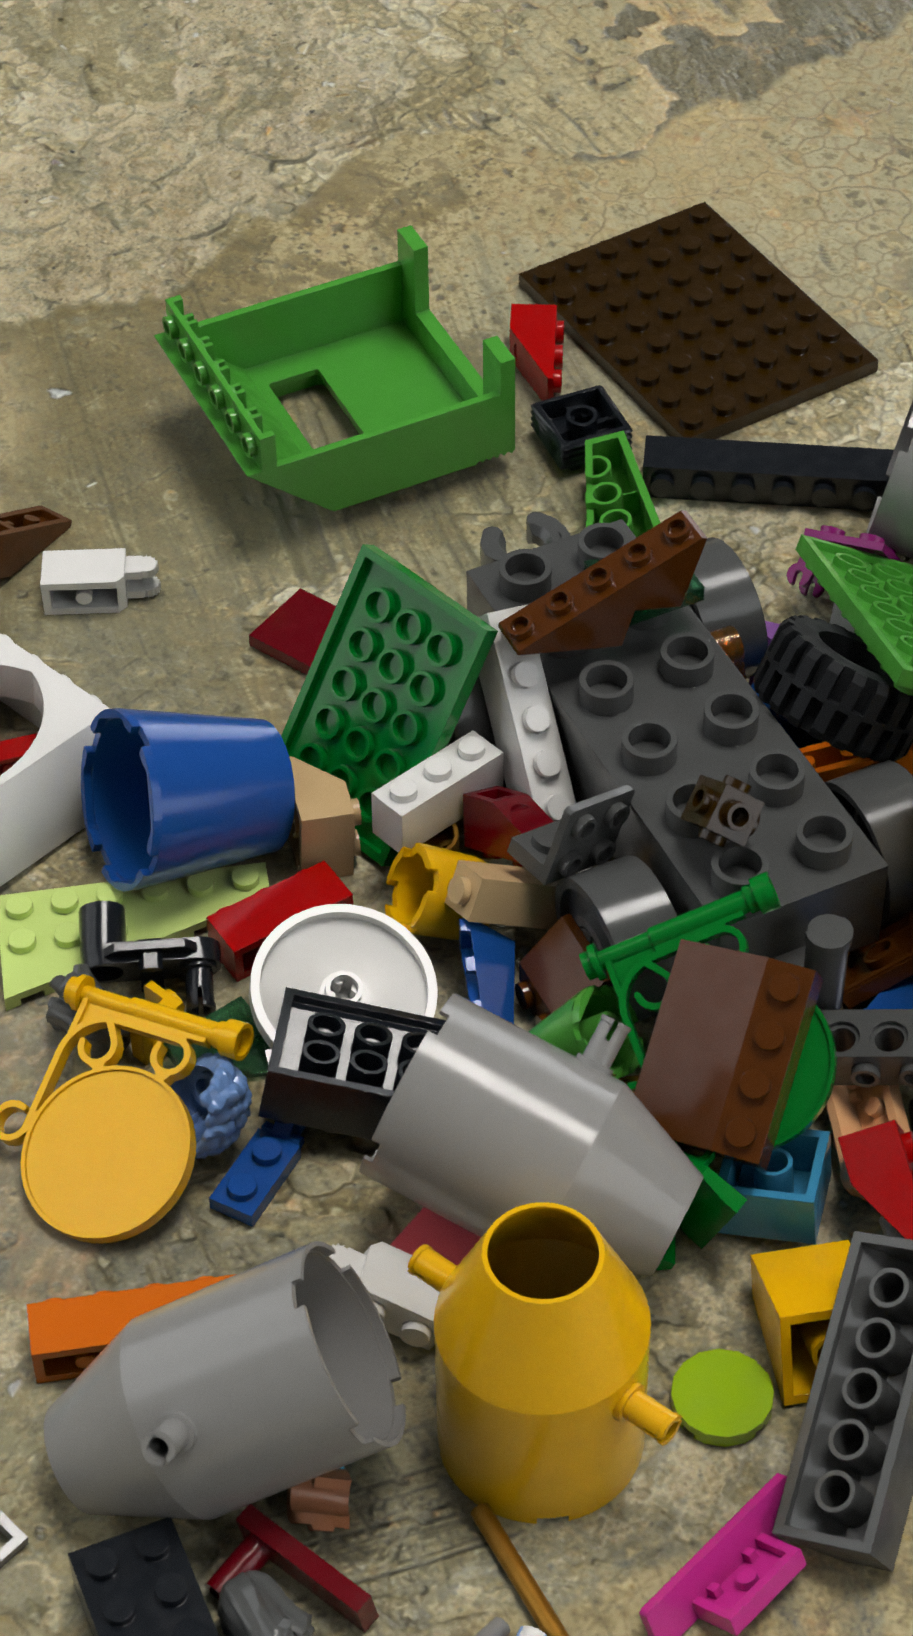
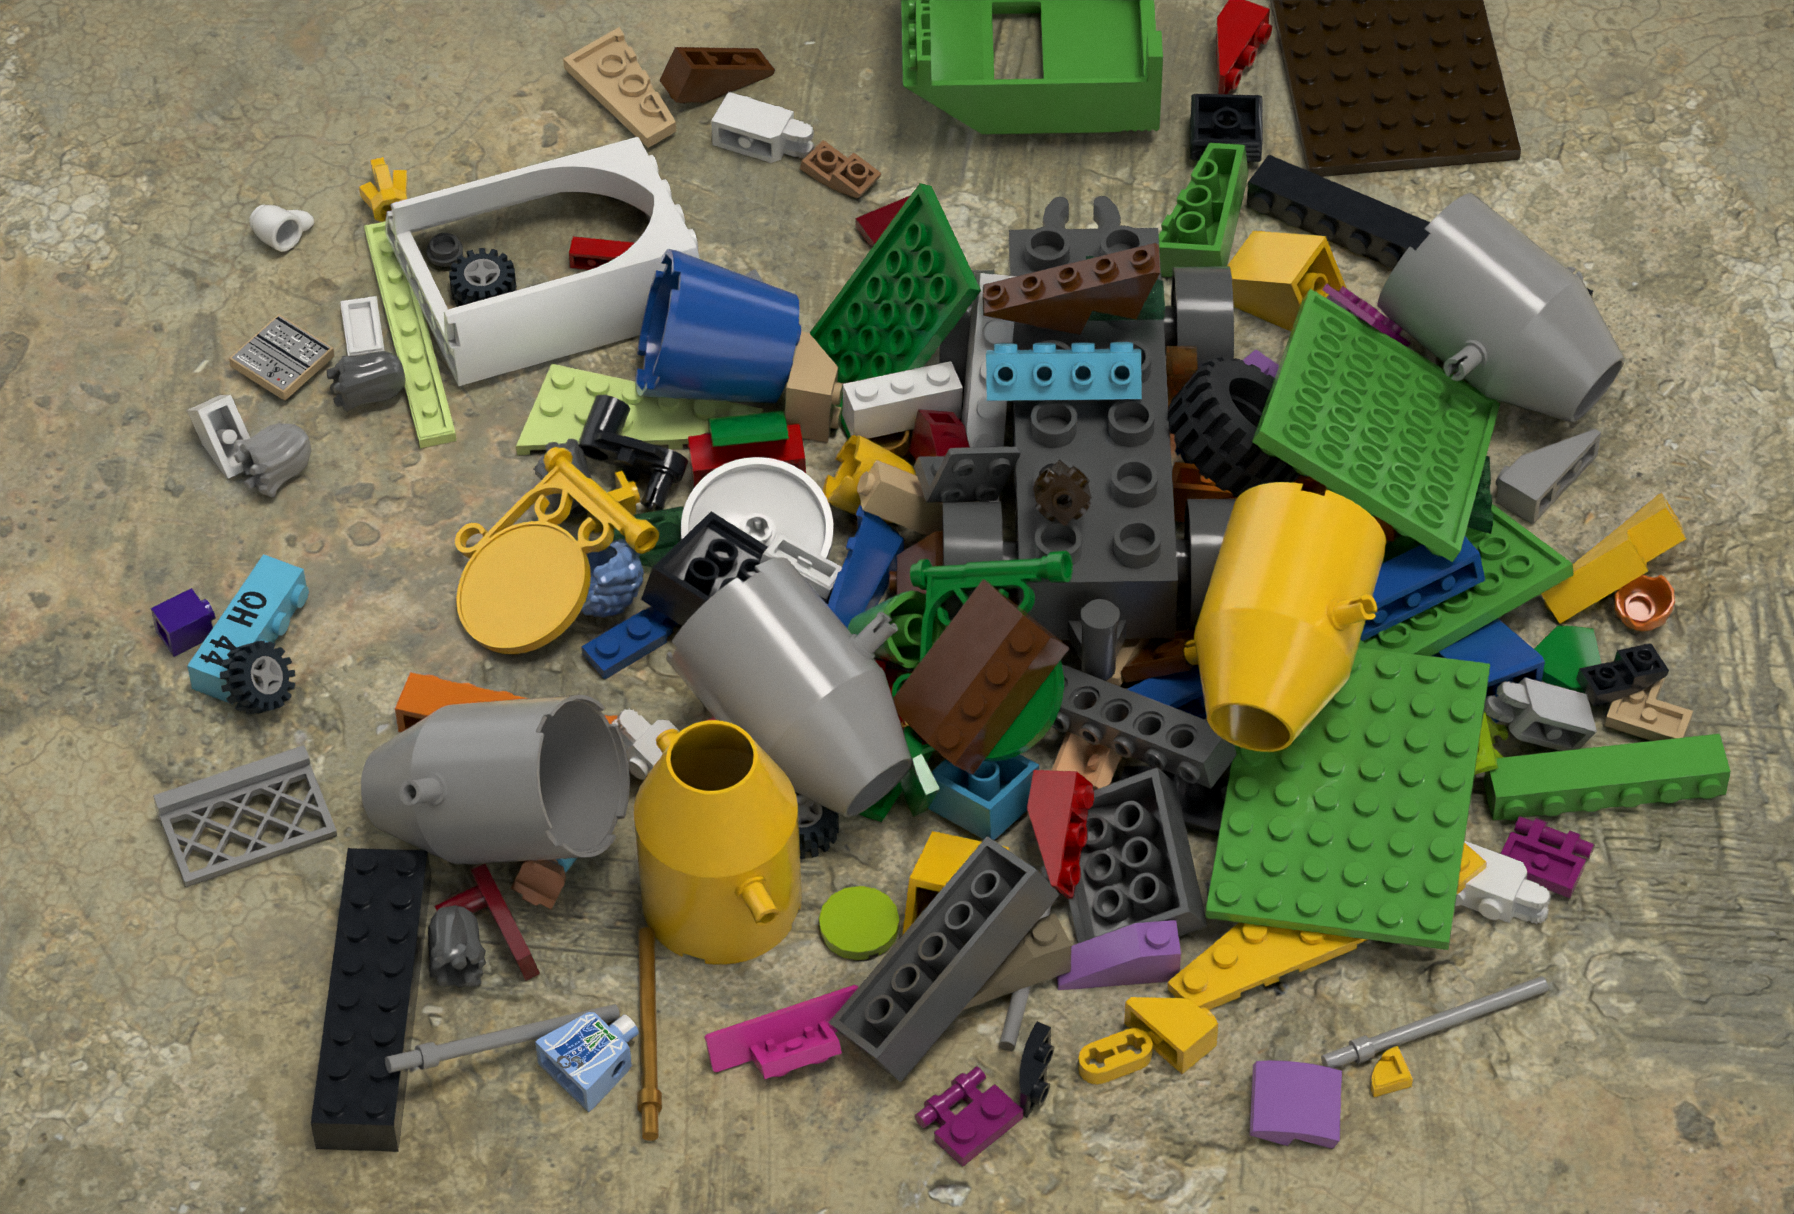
camera: 25 degrees right, 5 degrees up
(211, 598) = (832, 168): none -> medium nougat slope
(273, 883) = (748, 428): none -> green slope
(409, 1009) = (813, 567): none -> white tile
(638, 688) = (1063, 374): none -> medium azure brick
(758, 535) = (1278, 270): none -> yellow slope

